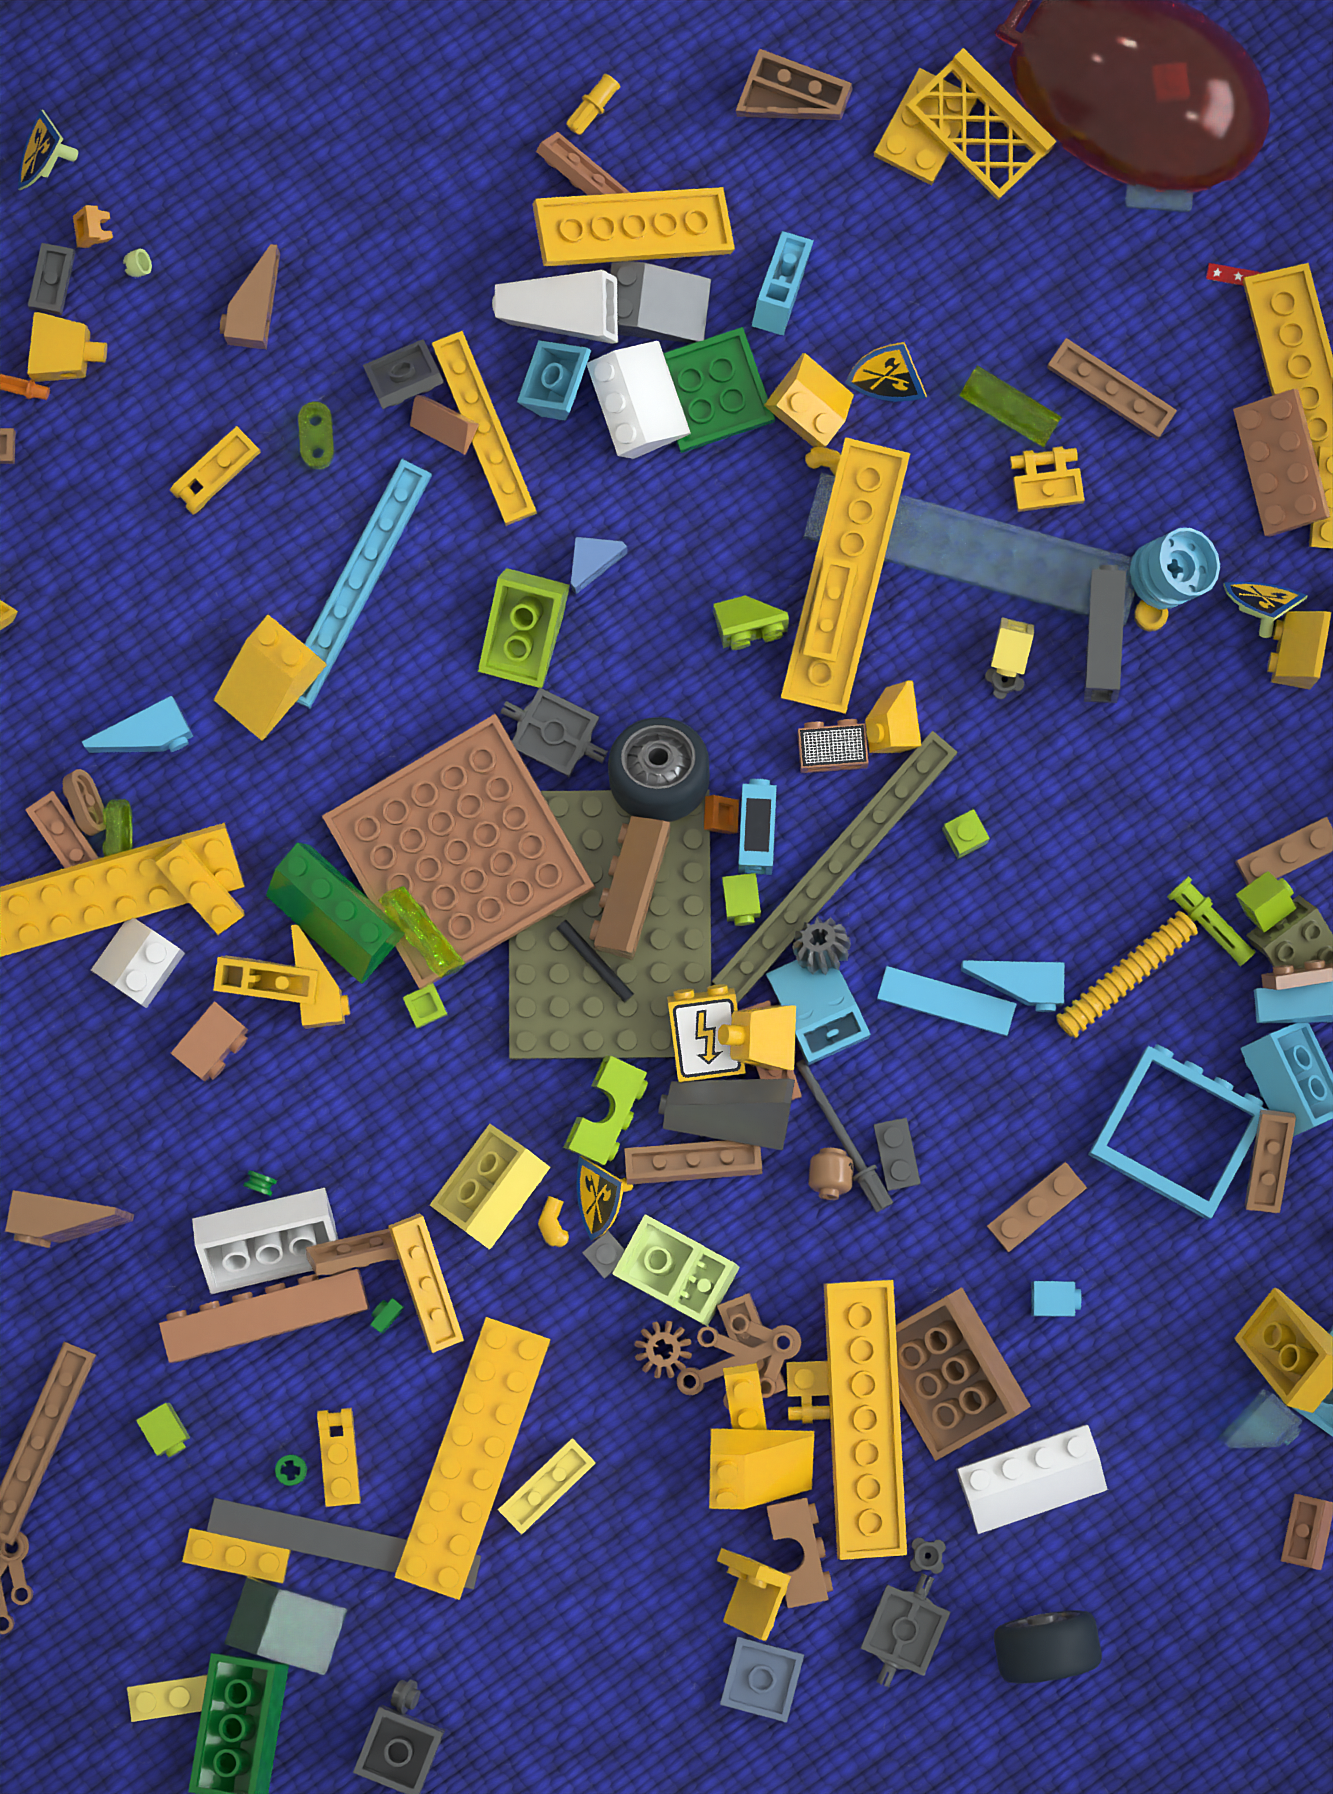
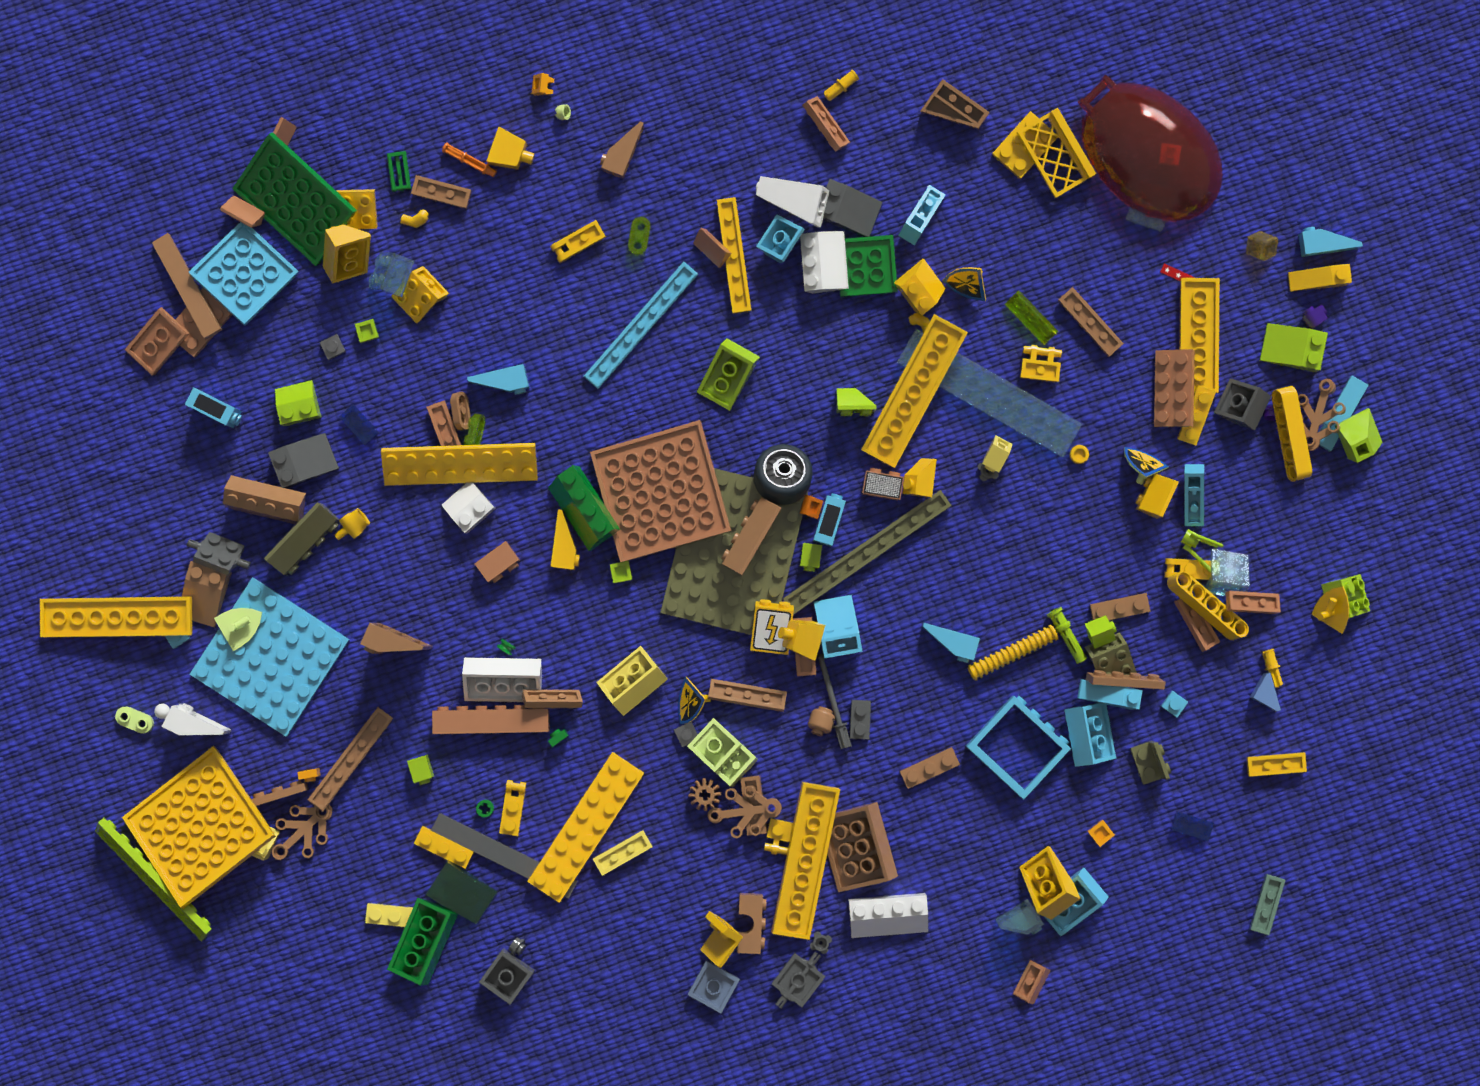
camera: 10 degrees right, 5 degrees up
(42, 151) = (524, 34): shield -> none
(51, 279) = (512, 109): dark grey plate -> none
(199, 886) = (512, 475): yellow plate -> none
(265, 979) = (536, 536): yellow slope -> none
(268, 677) = (578, 367): yellow slope -> none
(403, 374) = (696, 214): dark grey plate -> none
(421, 932) = (629, 532): clear neon green plate -> none
(426, 1282) = (583, 725): yellow plate -> none
(549, 1224) = (659, 709): yellow arm -> none
(554, 732) = (730, 437): dark grey plate -> none
(592, 559) = (776, 345): medium blue slope -> none
(595, 961) = (721, 572): black bar -> none
(621, 1085) = (697, 669): lime arch -> none
(633, 226) = (846, 163): yellow plate -> none
(730, 1110) = (774, 673): dark grey slope -> none
(745, 1397) = (741, 840): yellow plate -> none
(758, 1466) = (740, 871): yellow slope -> none
(821, 945) = (841, 596): flat silver gear -> none
(830, 609) = (901, 408): yellow plate -> none
(946, 1001) = (909, 641): medium azure tile -> none
(965, 834) = (944, 552): lime brick -> none
(1047, 1647) = (873, 1010): black wheel -> none
(1054, 1299) = (926, 821): medium azure brick -> none
(1104, 635) = (1050, 460): dark grey slope -> none
(1174, 568) = (1098, 433): medium azure wheel -> none
(1270, 1161) = (1064, 776): medium nougat plate -> none

